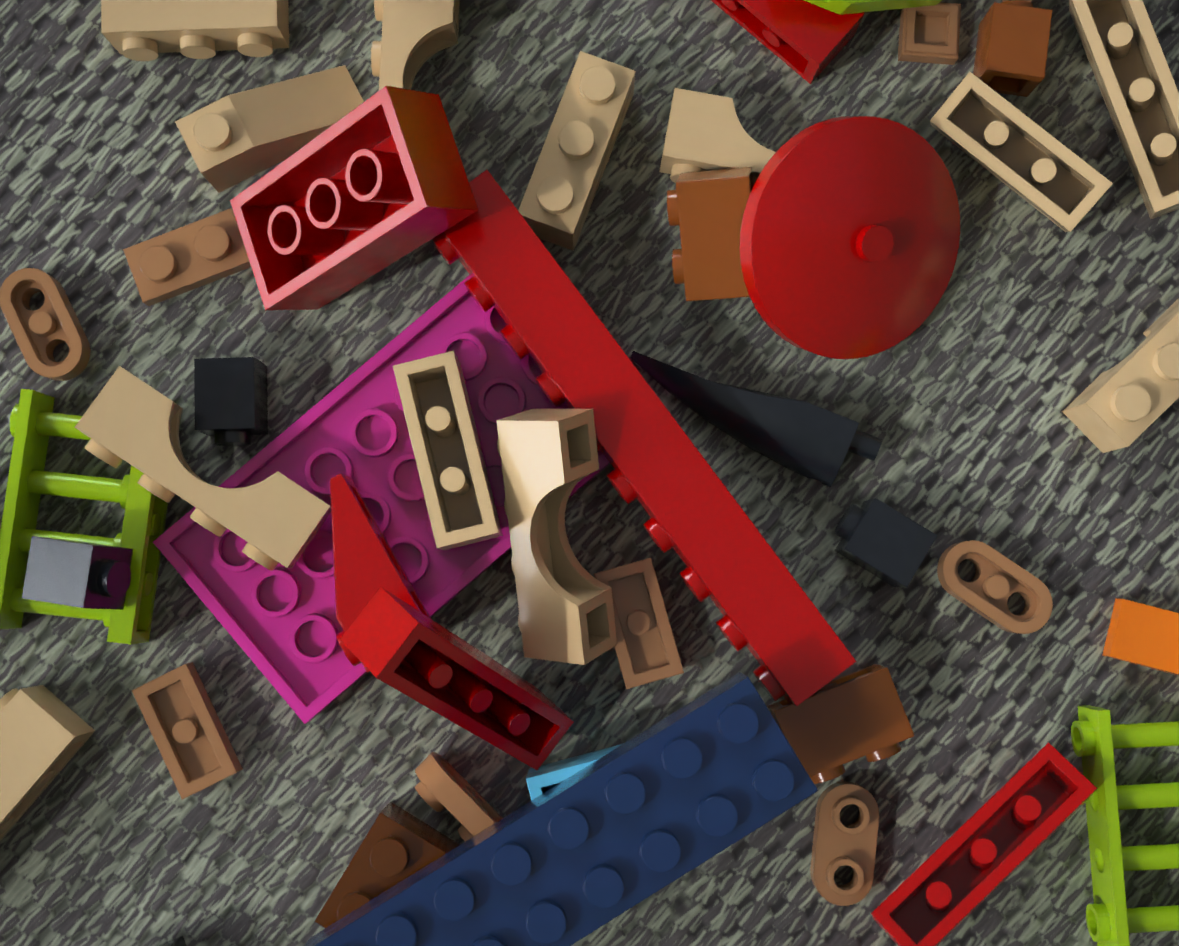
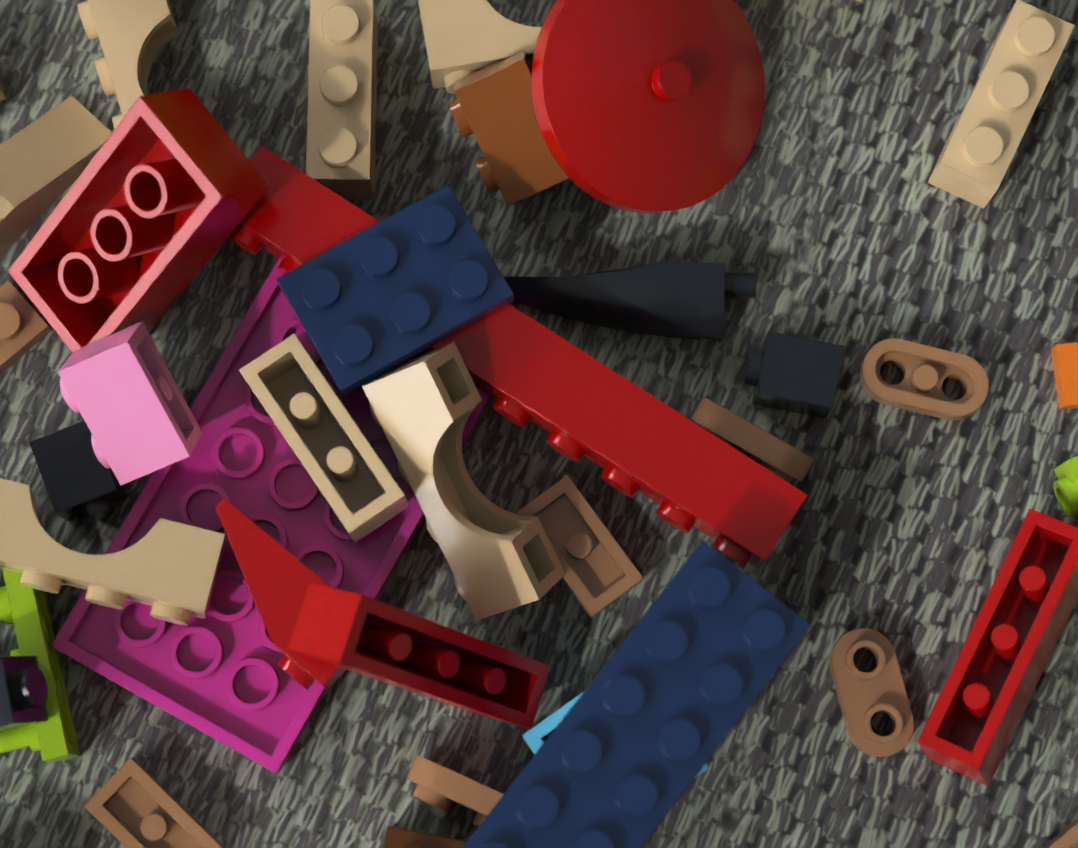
camera: 20 degrees left, 5 degrees down
(289, 358) = (129, 404): none -> bright pink brick
(558, 343) = (395, 289): none -> dark blue plate
(837, 603) = (770, 450): none -> medium nougat plate
(845, 722) = (826, 564): dark orange brick -> none

